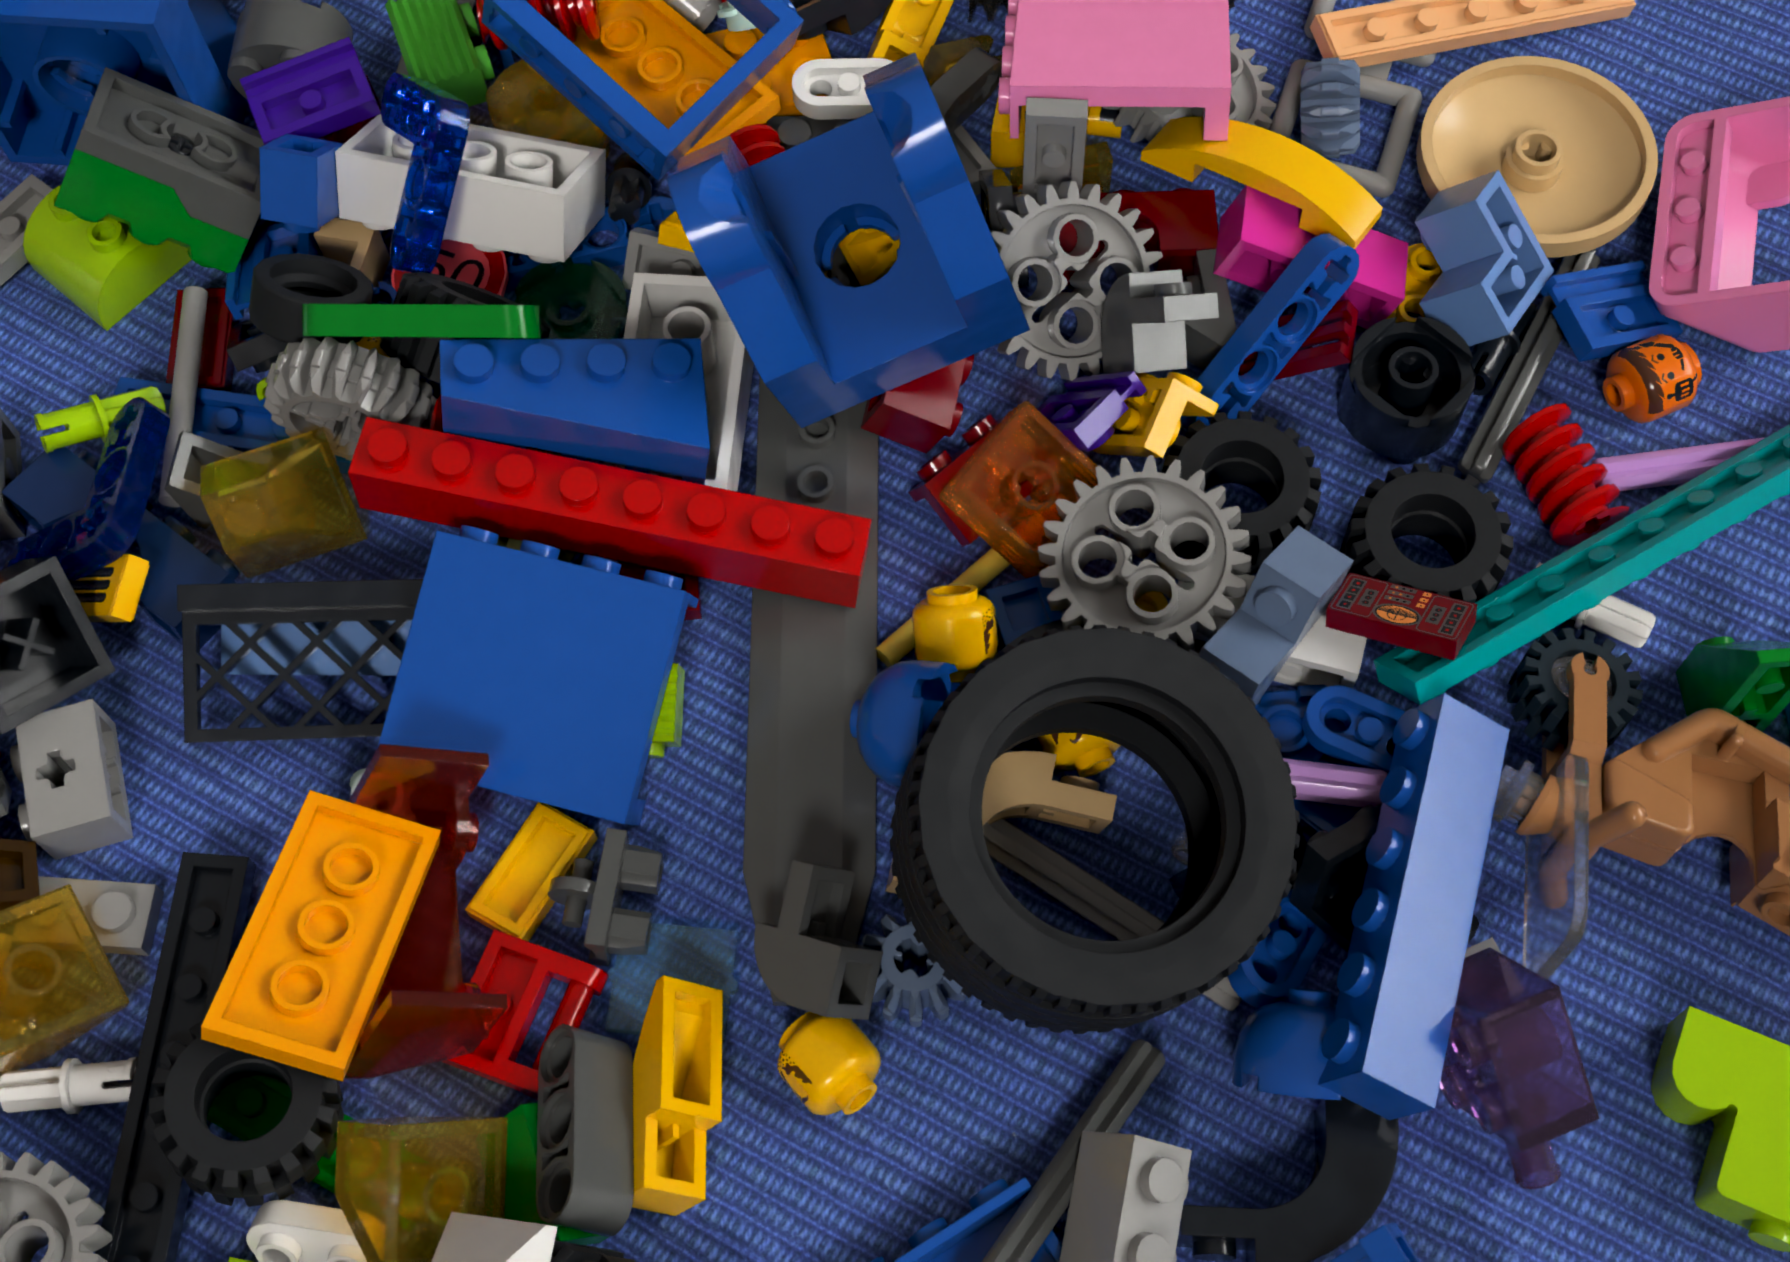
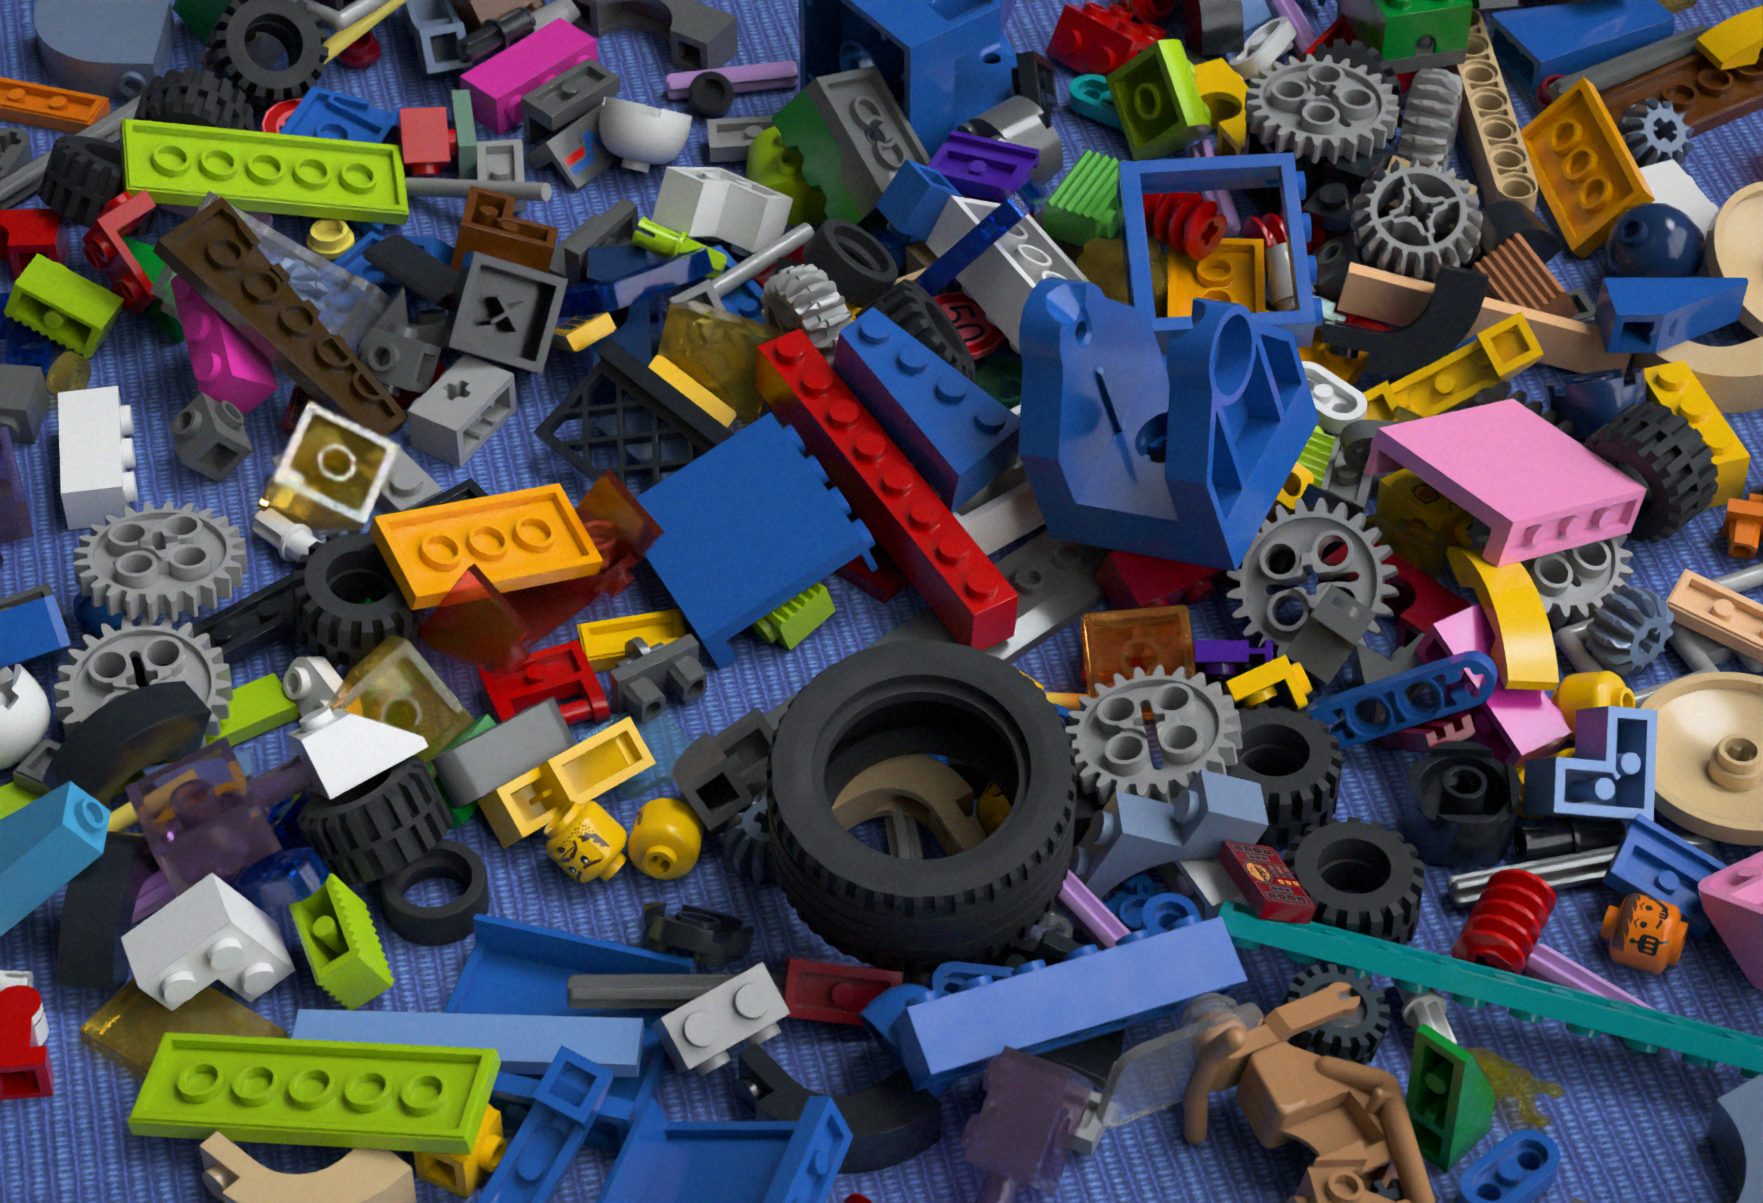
camera: 45 degrees right, 20 degrees down
(84, 330) = (721, 206): none -> white brick
(297, 566) = (693, 390): none -> yellow tile
(421, 320) = (880, 295): green beam -> none
(767, 1144) = (586, 842): none -> yellow head
(969, 1169) = (705, 931): none -> black plate
(1054, 143) = (1382, 491): light grey plate -> none
(1155, 1065) = (832, 987): none -> dark red panel
(1397, 193) = (1590, 691): none -> yellow head
(1721, 612) = (1518, 1082): none -> clear yellow plate

